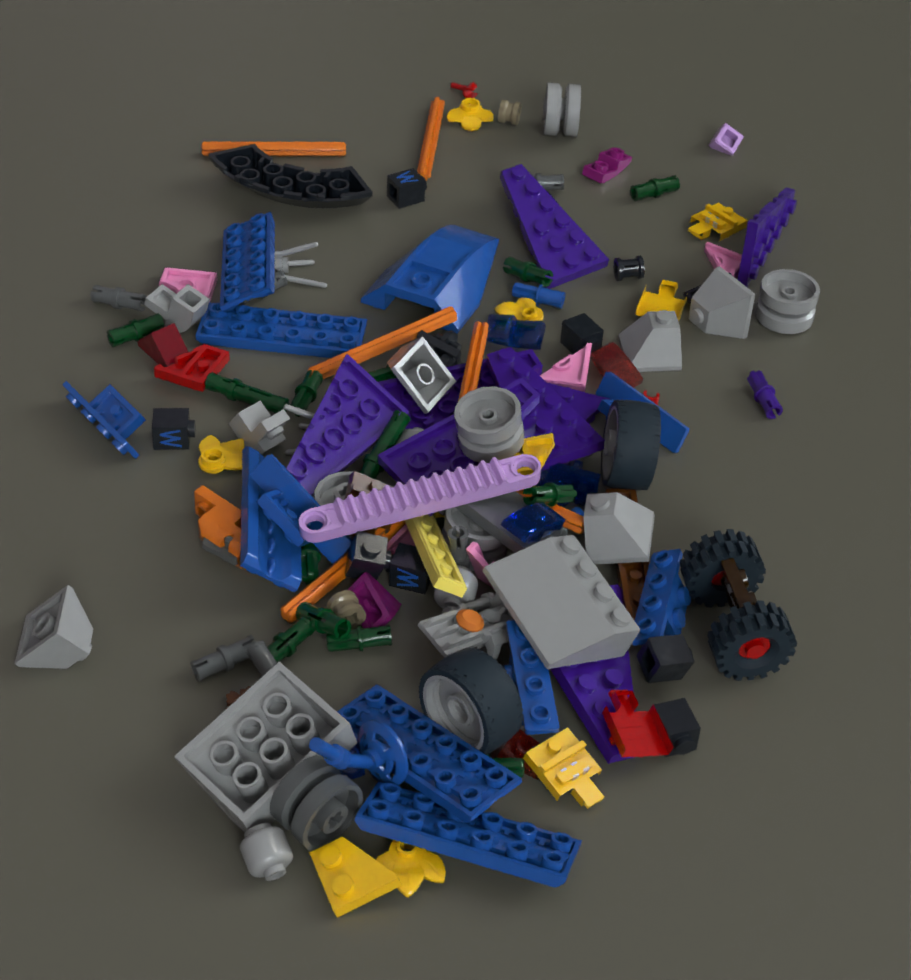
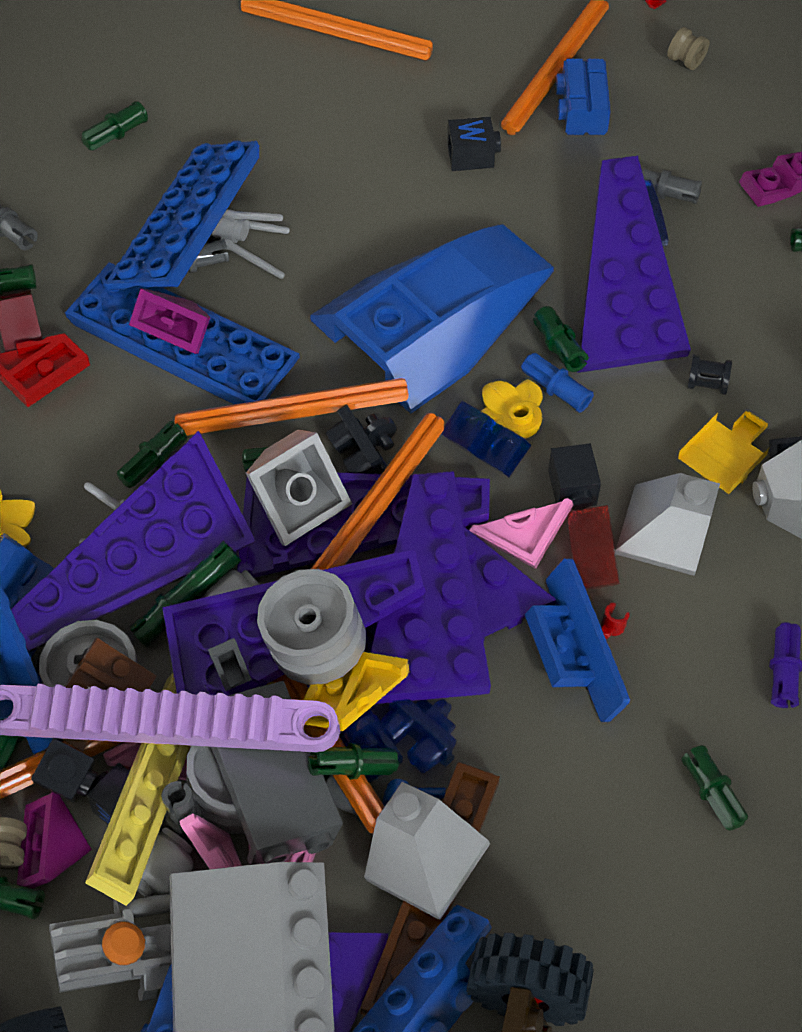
camera: 25 degrees right, 15 degrees up
(160, 230) = (114, 126): none -> dark green axle
(177, 279) = (105, 227): bright pink tile -> none
(180, 308) = (60, 263): light grey brick -> none
(239, 391) = (66, 419): dark green pin -> none
(259, 428) = (55, 498): light grey brick -> none
(276, 316) = (170, 319): none -> magenta slope
(291, 183) = (309, 95): black brick -> none
(447, 455) = (229, 664): none -> dark grey piece
(461, 149) = (585, 96): none -> blue brick
(470, 114) = (633, 36): yellow plate -> none
(532, 522) = (288, 811): clear blue slope -> none
(562, 109) = (756, 68): light grey wheel -> none
(630, 445) = (512, 712): black wheel -> none
(762, 461) = (715, 788): none -> dark green axle

